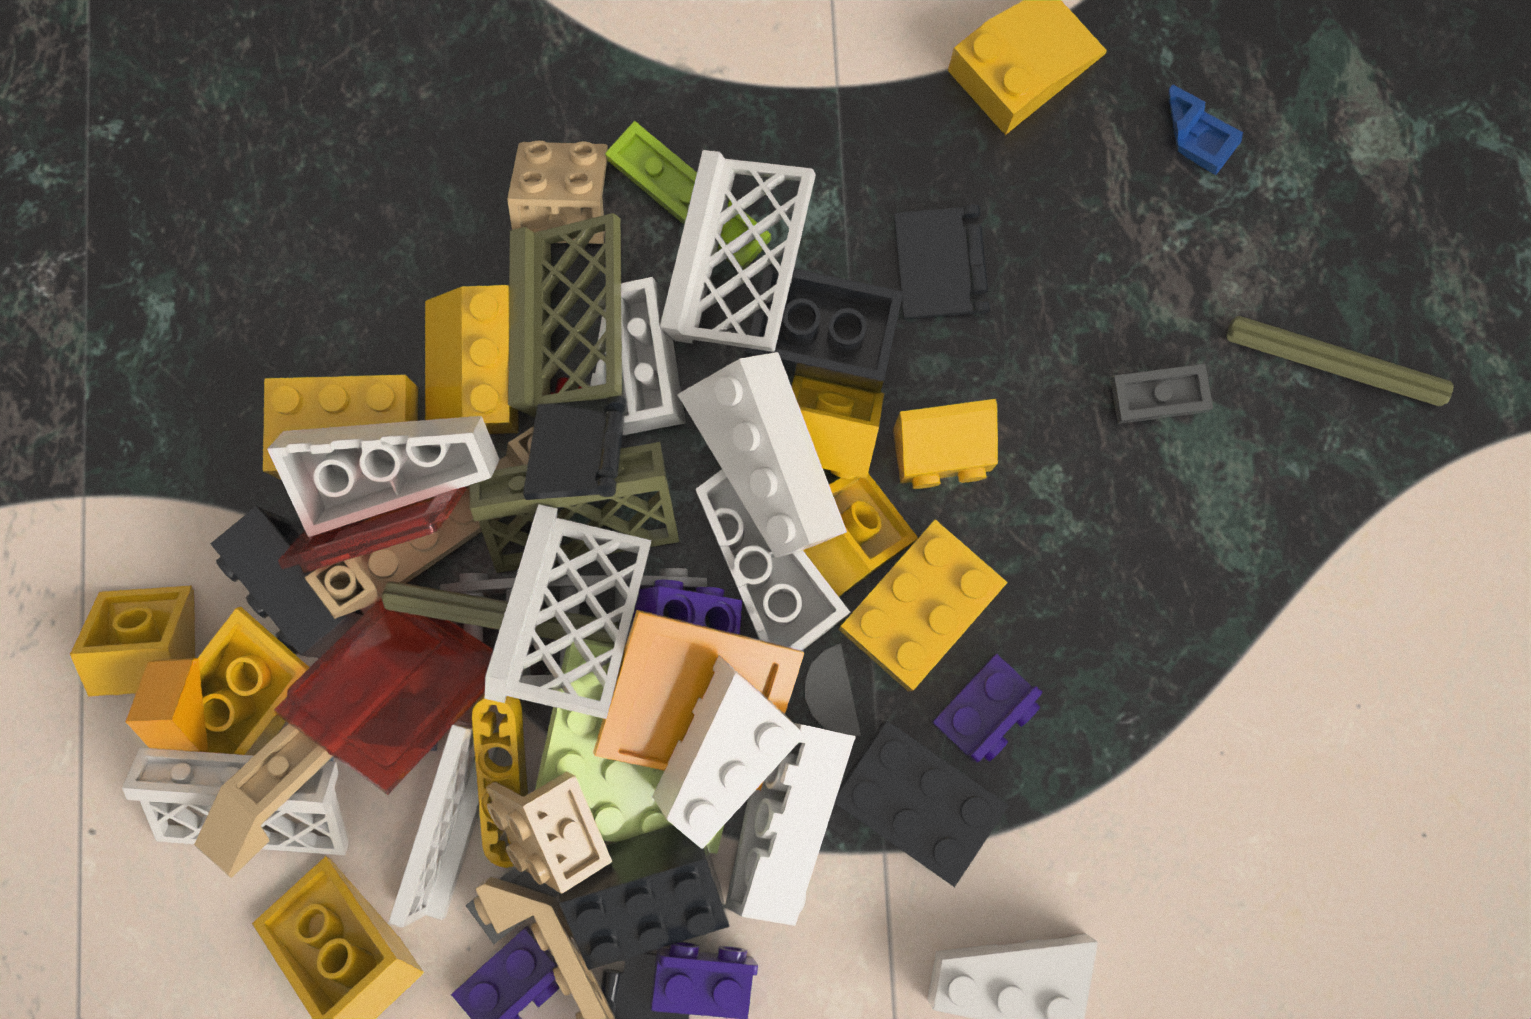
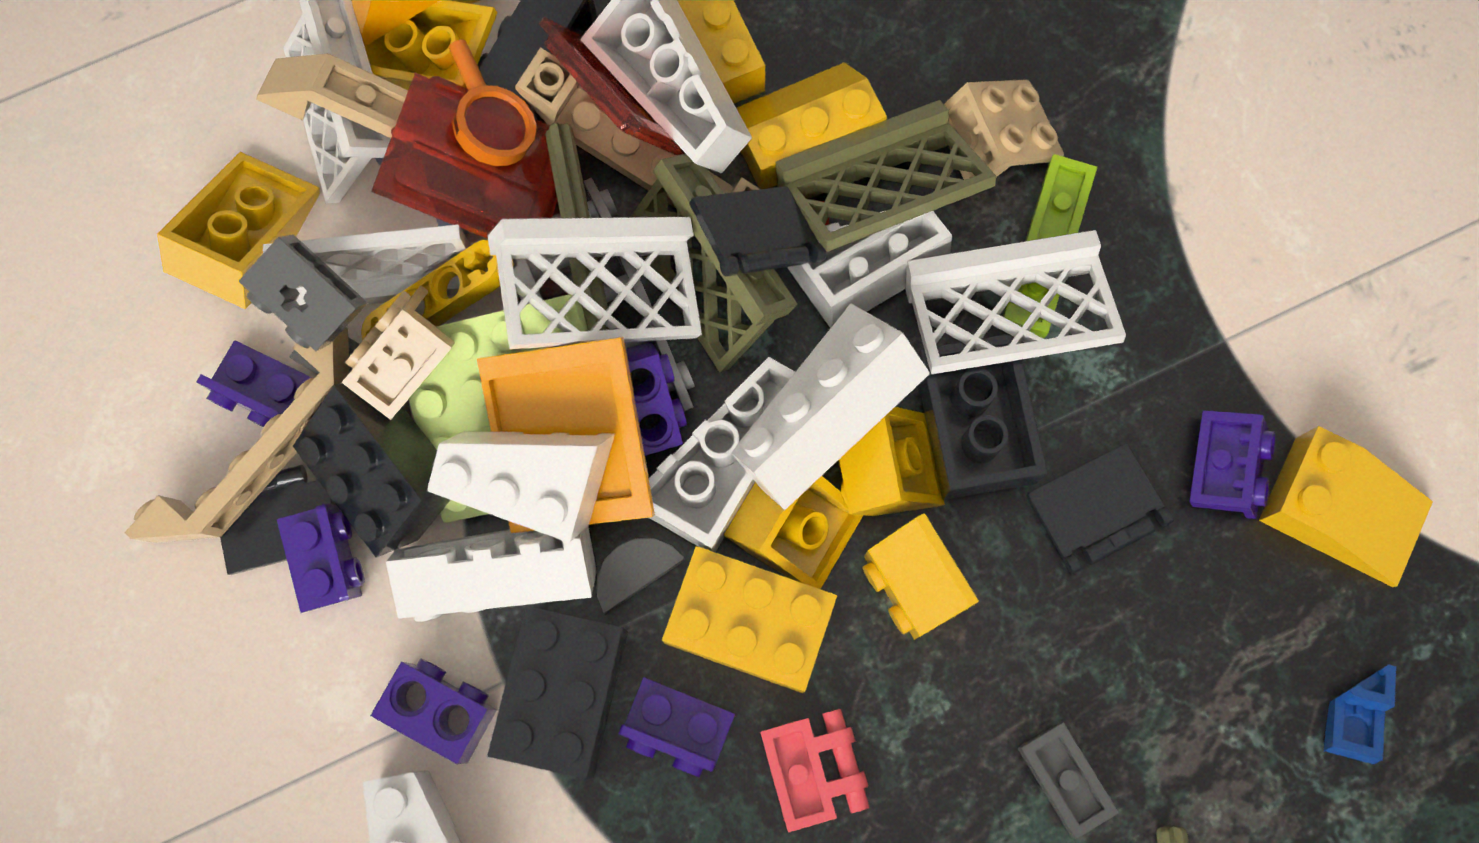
camera: 70 degrees right, 5 degrees down
(355, 654) = (490, 120): none -> piece
(431, 900) = (328, 299): none -> dark grey brick
(899, 933) = (430, 722): none -> dark purple brick
(949, 133) = (1232, 462): none -> dark purple bracket
(1066, 617) = (800, 775): none -> coral plate

